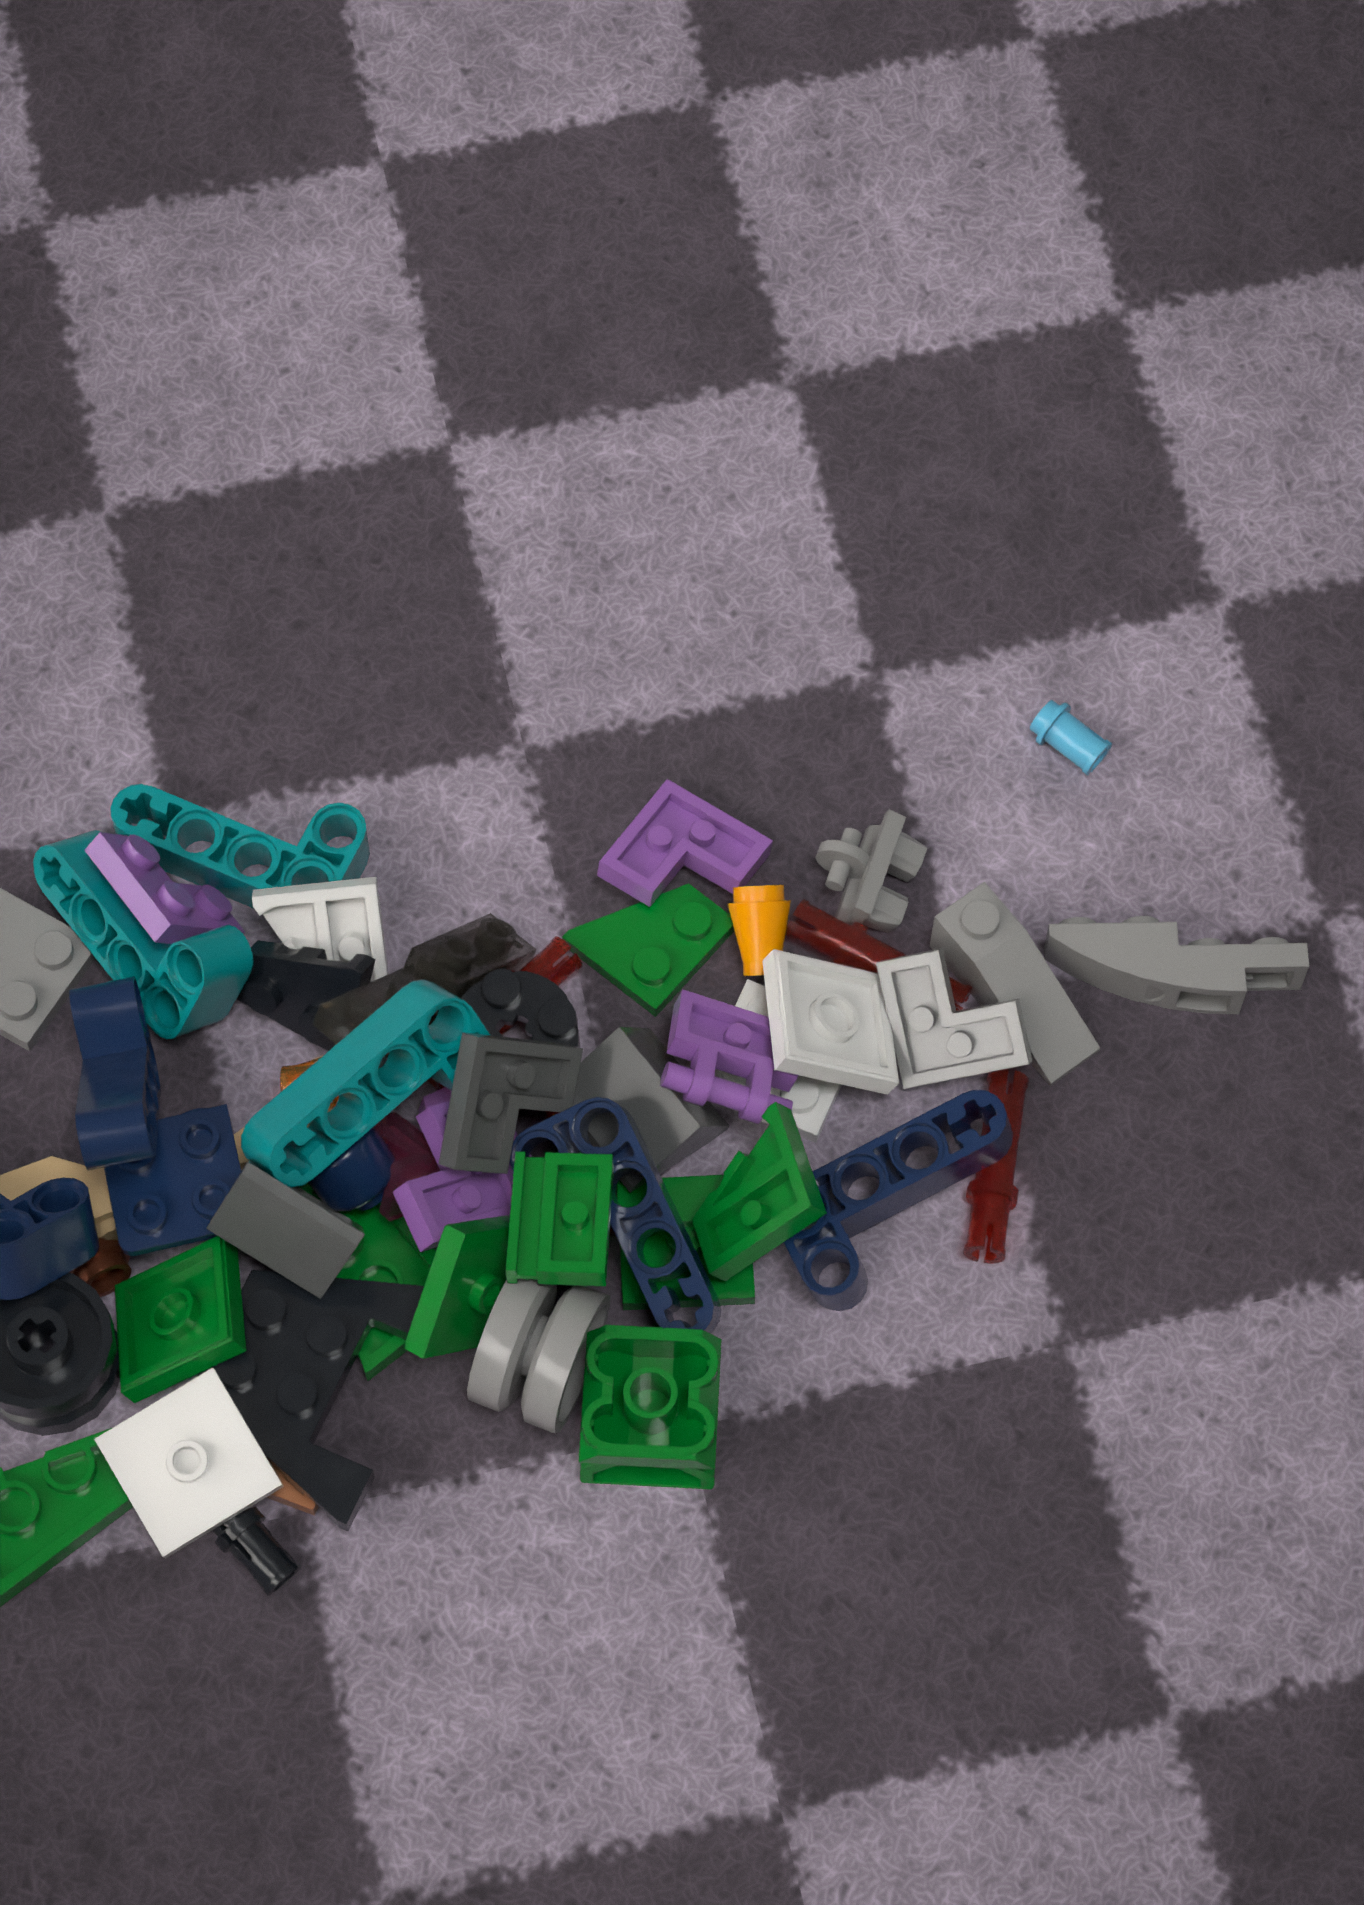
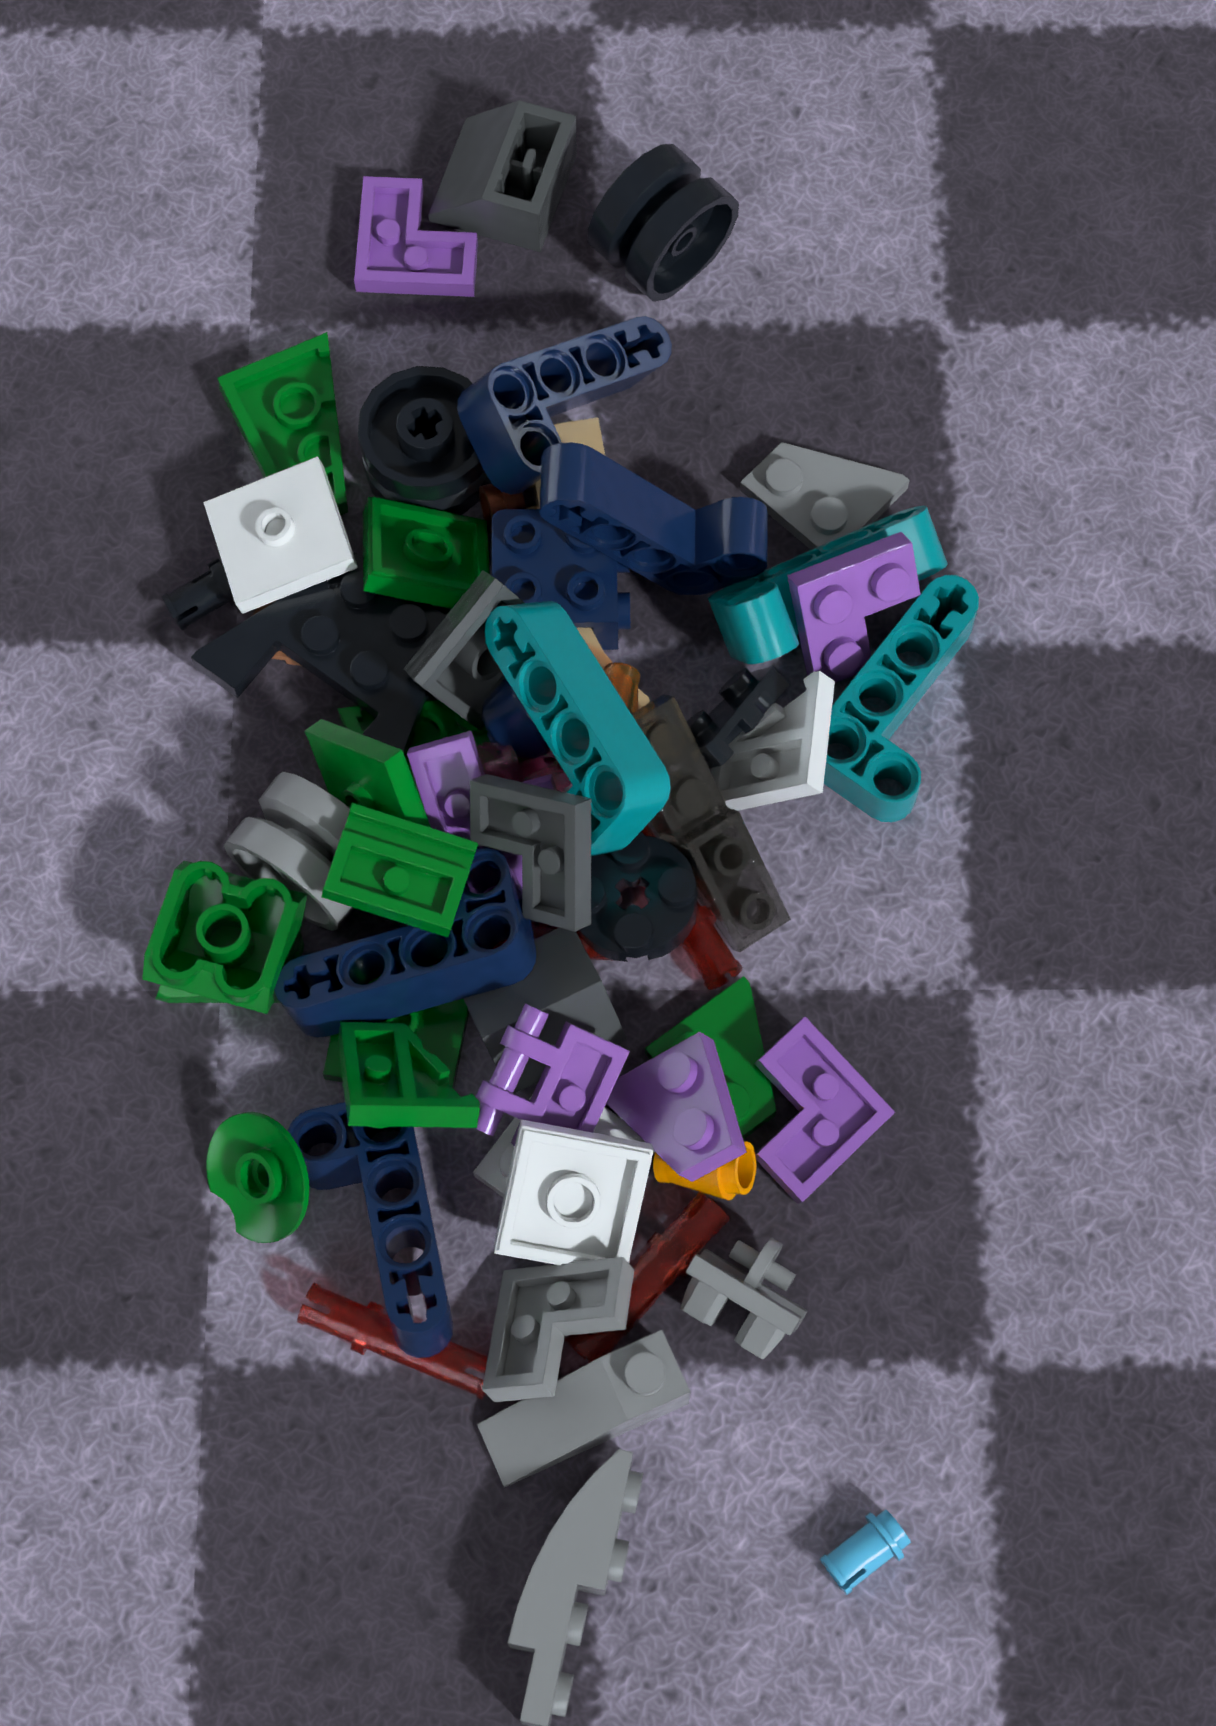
camera: 105 degrees right, 5 degrees up
(719, 941) = (682, 1107): none -> medium lavender wing
(898, 1325) = (259, 1176): none -> green dish

